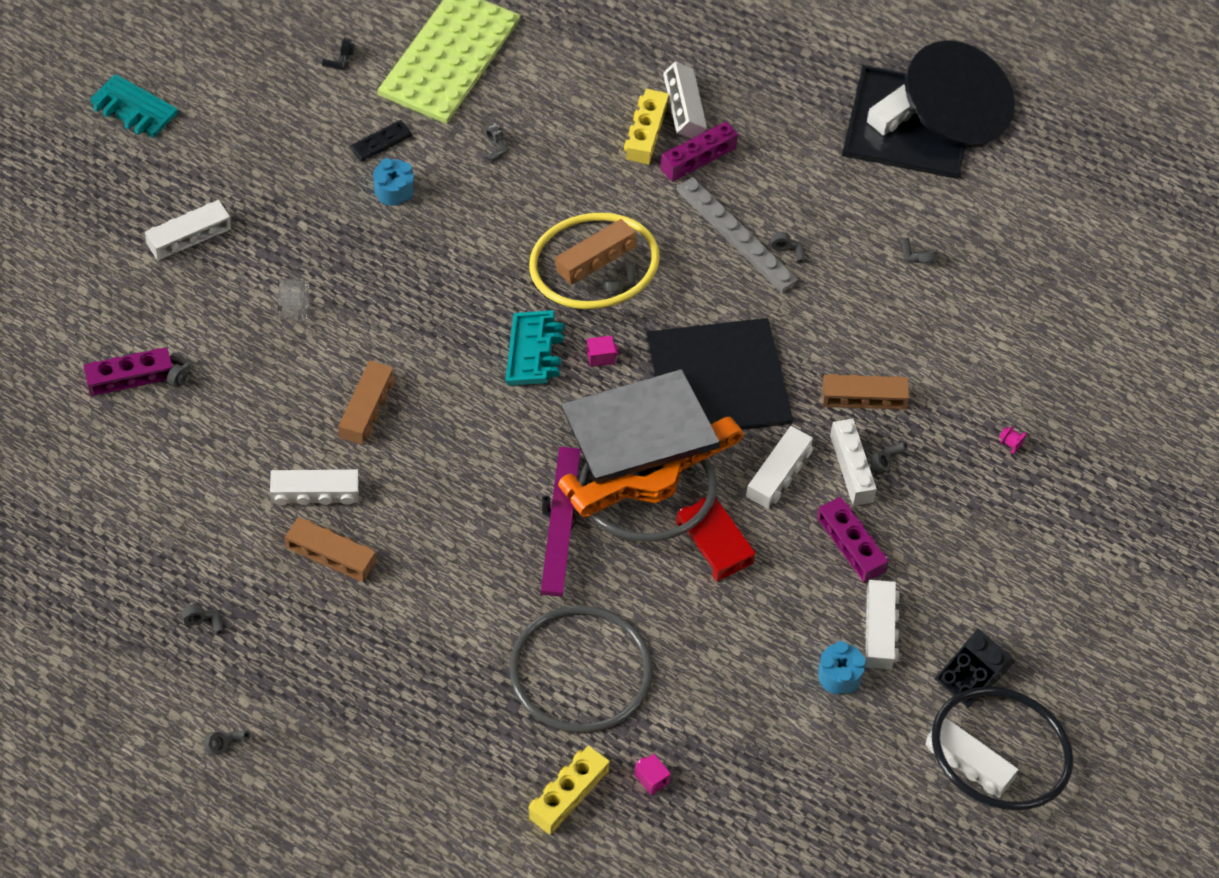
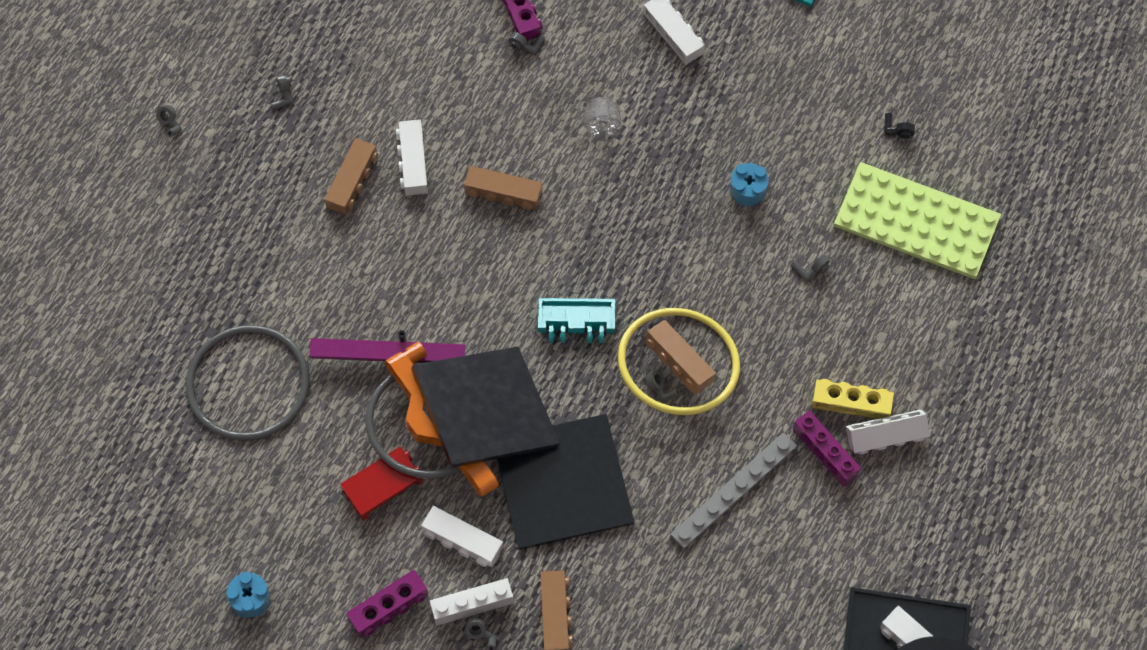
camera: 90 degrees right, 10 degrees up
(381, 140) = (802, 172): black tile -> none
(551, 817) = (107, 357): light yellow brick -> none
(601, 351) = (578, 375): dark pink brick -> none
(652, 774) = (143, 442): dark pink brick -> none
(782, 241) = (727, 531): dark grey plate -> none
(881, 624) = (297, 631): white brick -> none

